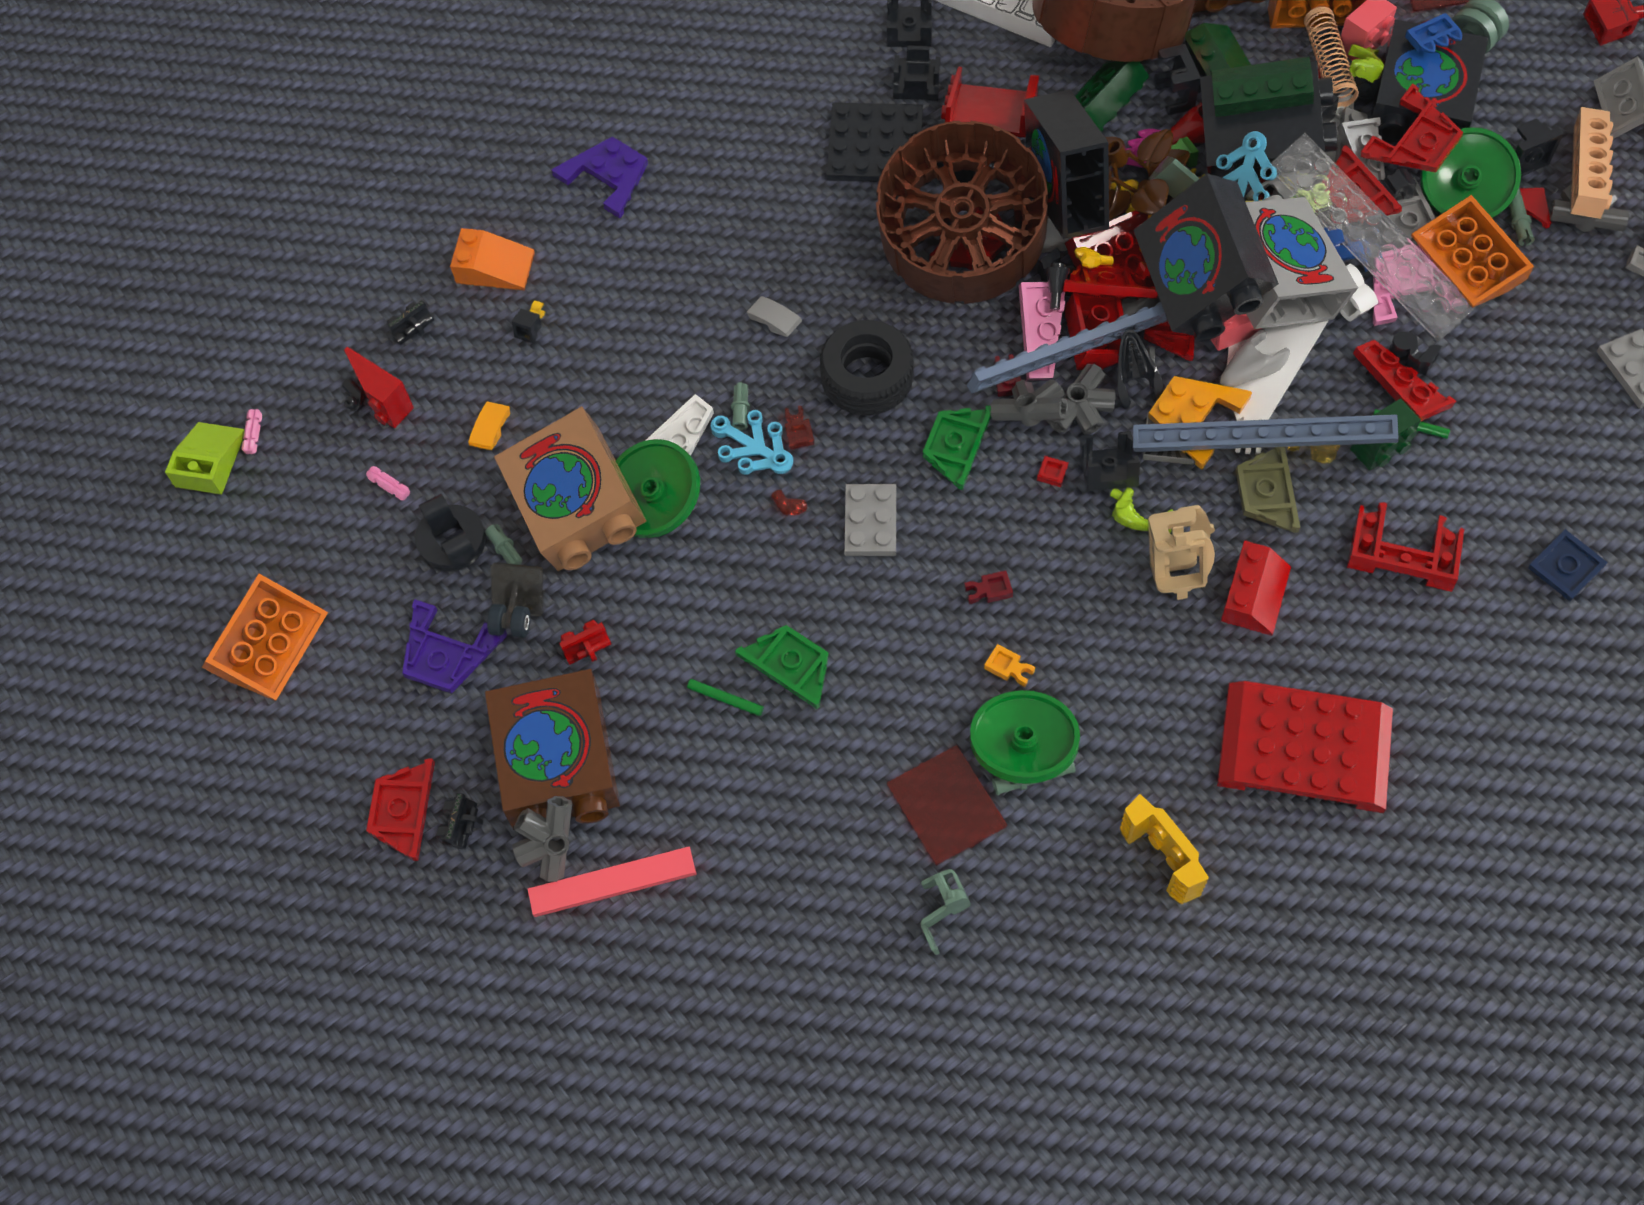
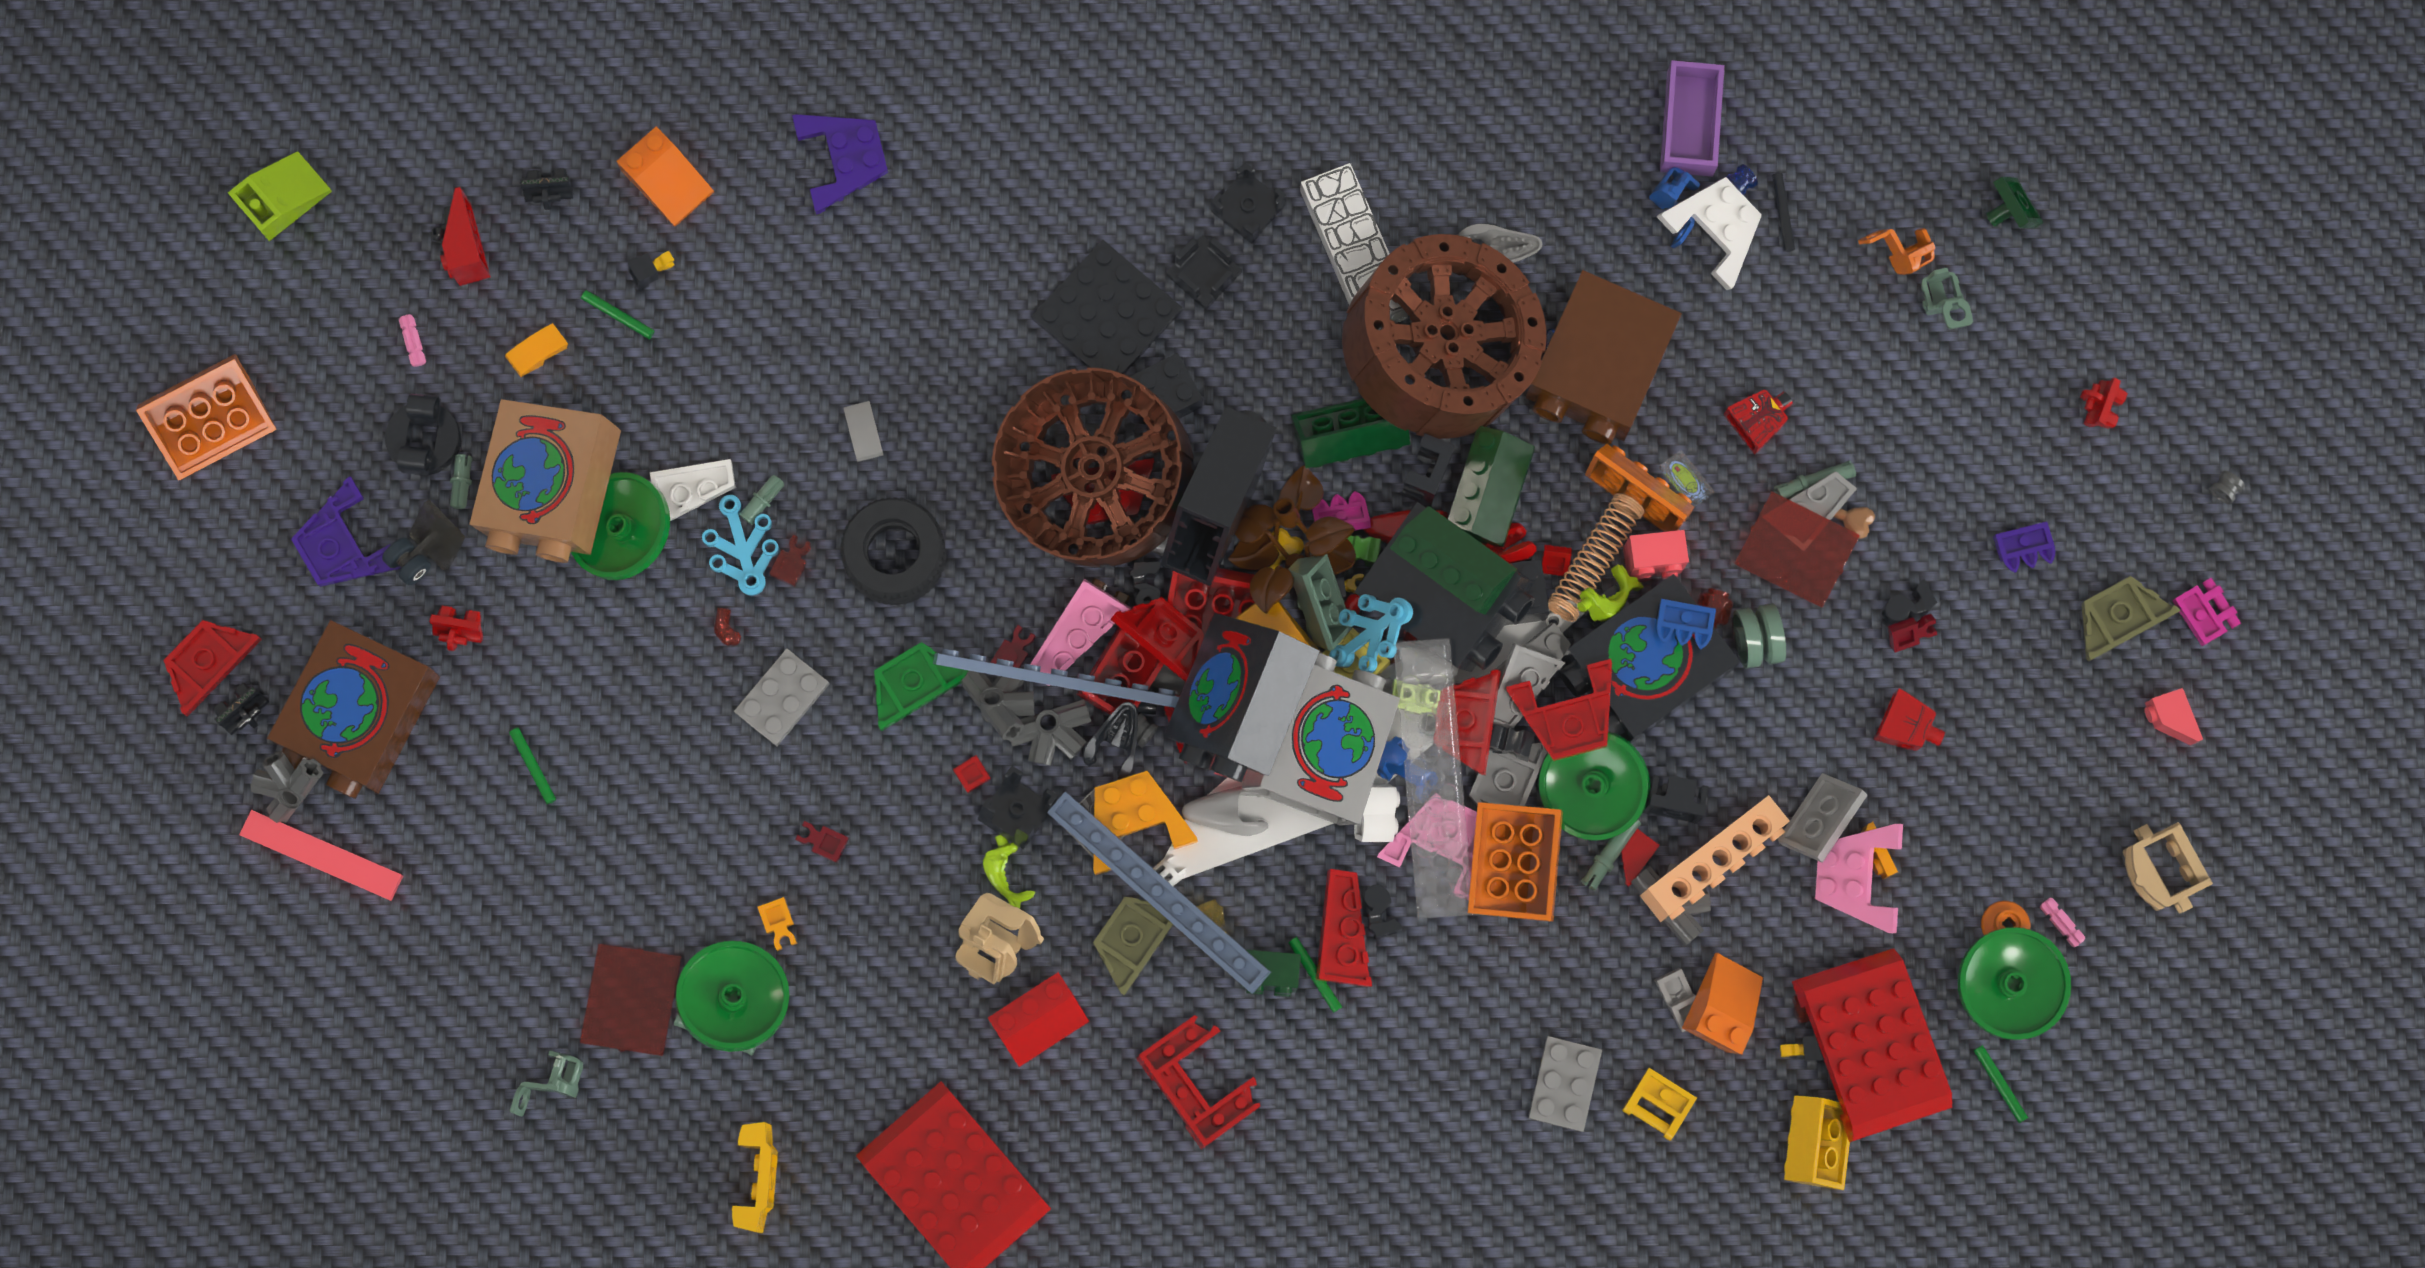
camera: 30 degrees right, 15 degrees up
(251, 431) = (336, 196): bright pink axle -> none
(530, 366) = (617, 314): none -> green bar
(790, 662) = (607, 778): green wing -> none
(988, 104) = (1230, 362): red panel -> none
(1056, 276) = (1117, 599): black cone -> none
(1092, 259) = (1171, 601): yellow rock -> none
(1568, 565) = (1315, 1206): dark blue plate -> none

